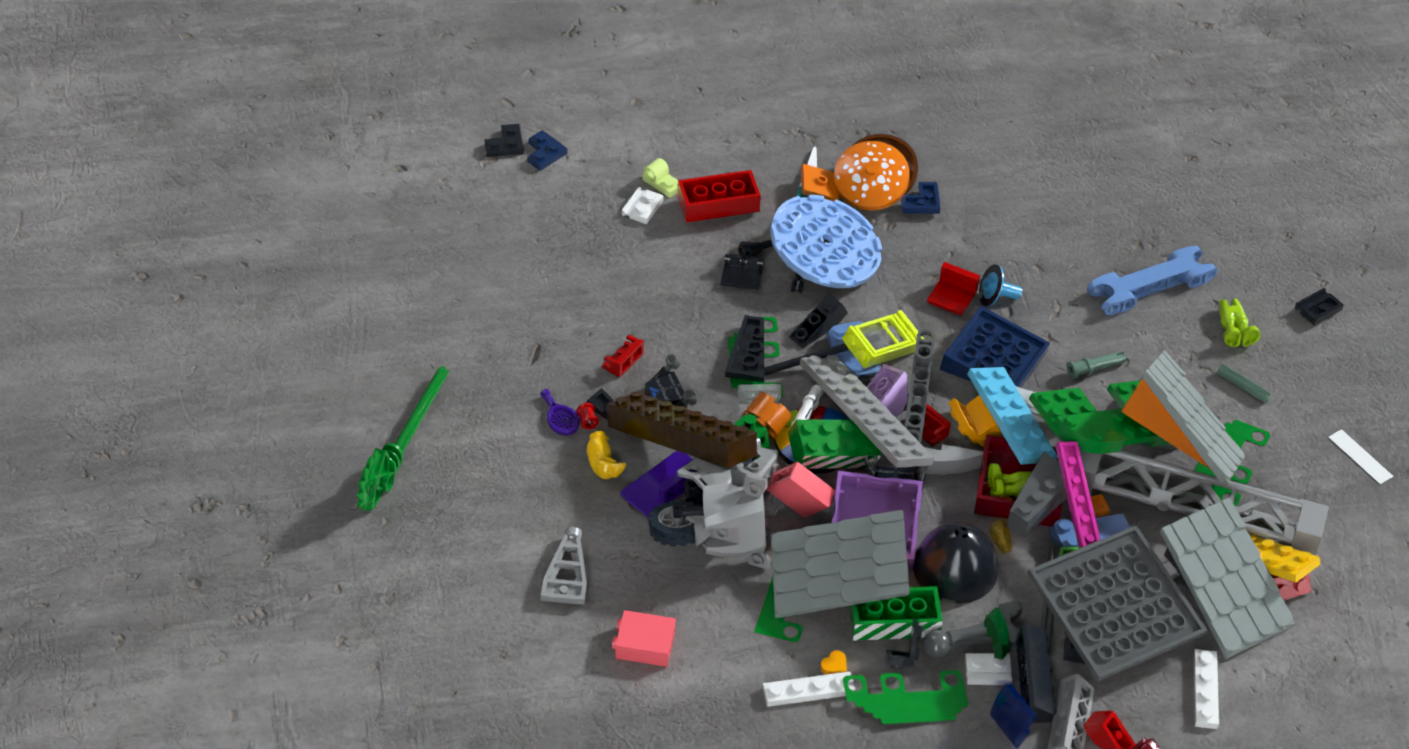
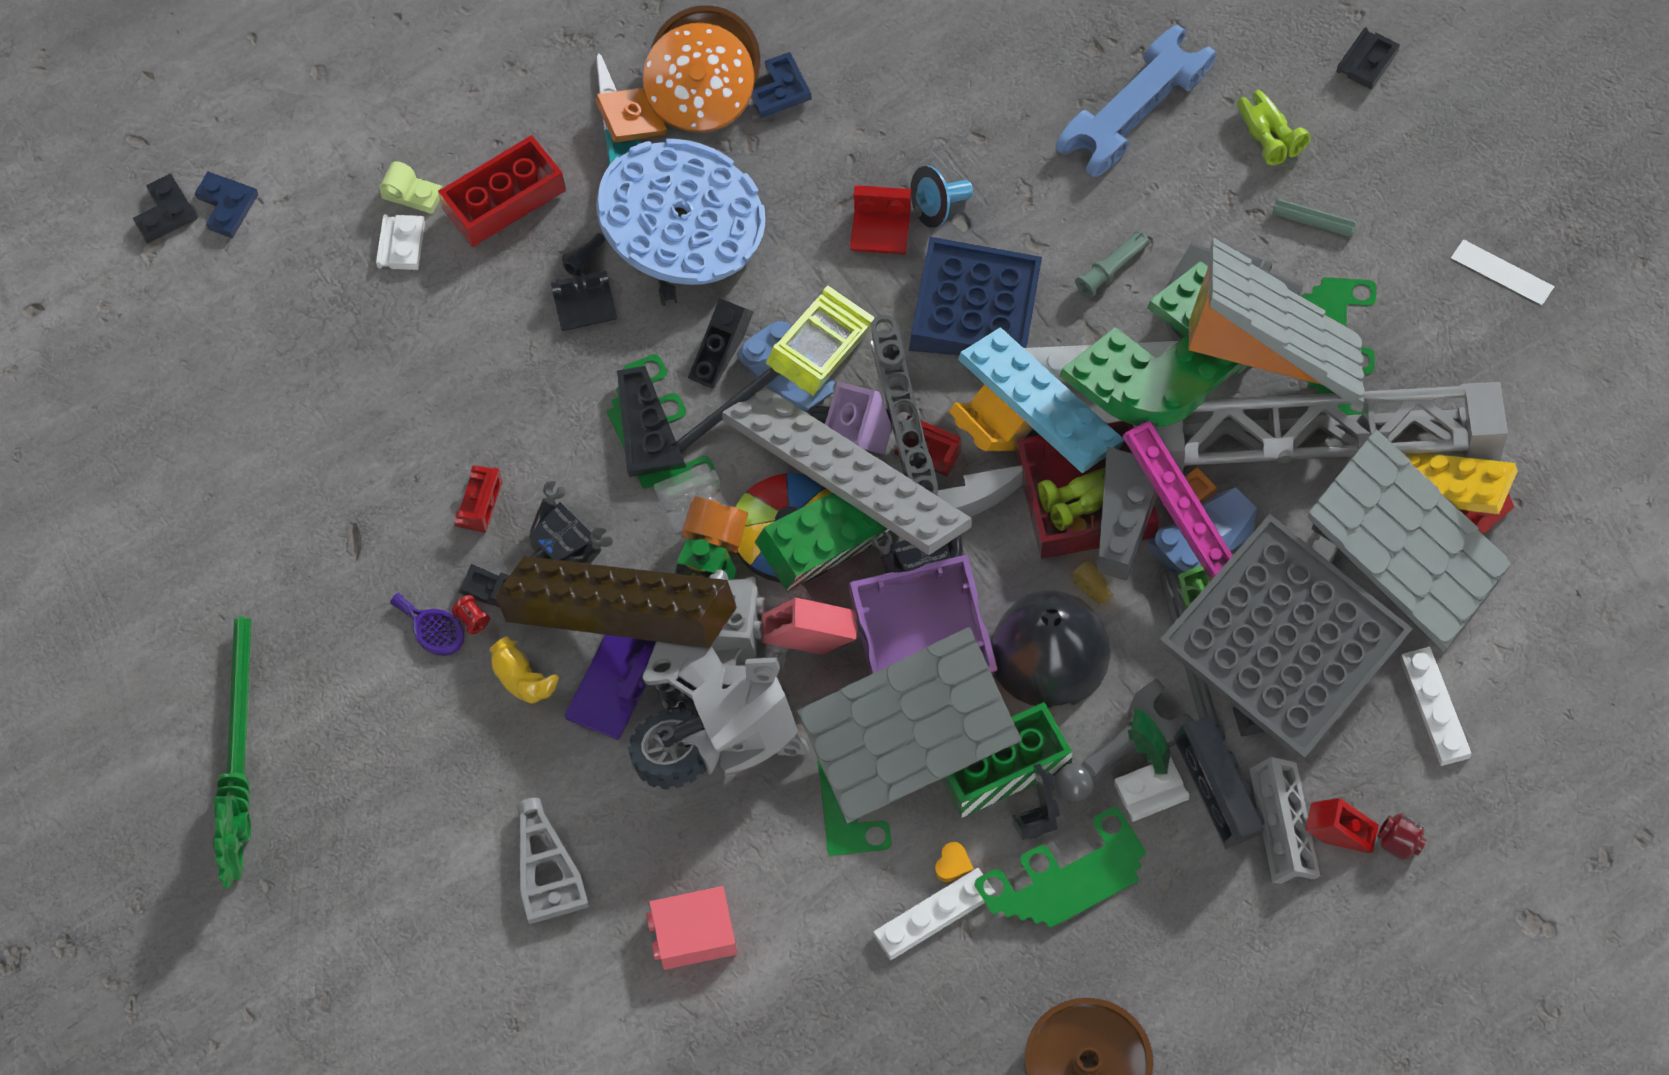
camera: 15 degrees left, 15 degrees up
(810, 403) = (763, 478): white pin -> none
(1012, 715) = (1213, 852): clear blue slope -> none

